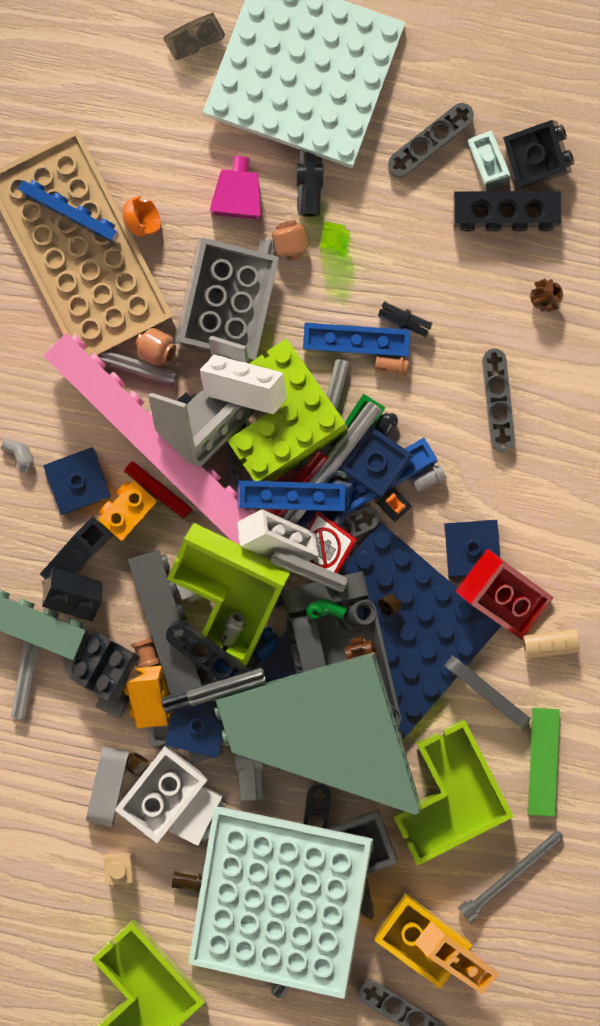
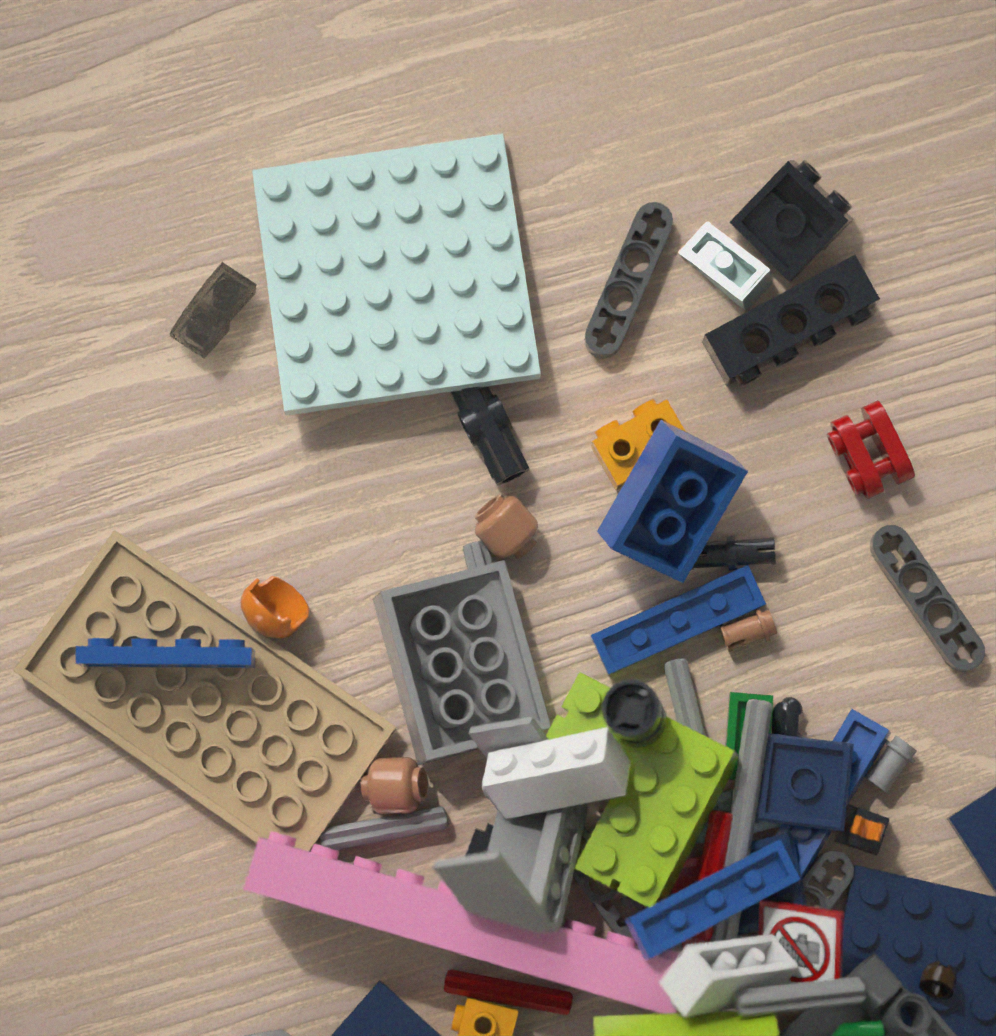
camera: 30 degrees left, 5 degrees down
(237, 192) = (394, 499): dark pink torso -> none
(301, 373) = (634, 713): none -> black wheel
(334, 239) = (569, 492): clear neon green brick -> none
(386, 272) = (672, 501): none -> blue brick
(387, 233) = (621, 445): none -> light orange brick
(501, 291) = (863, 473): none -> red brick
(546, 295) = (915, 412): reddish brown gear -> none

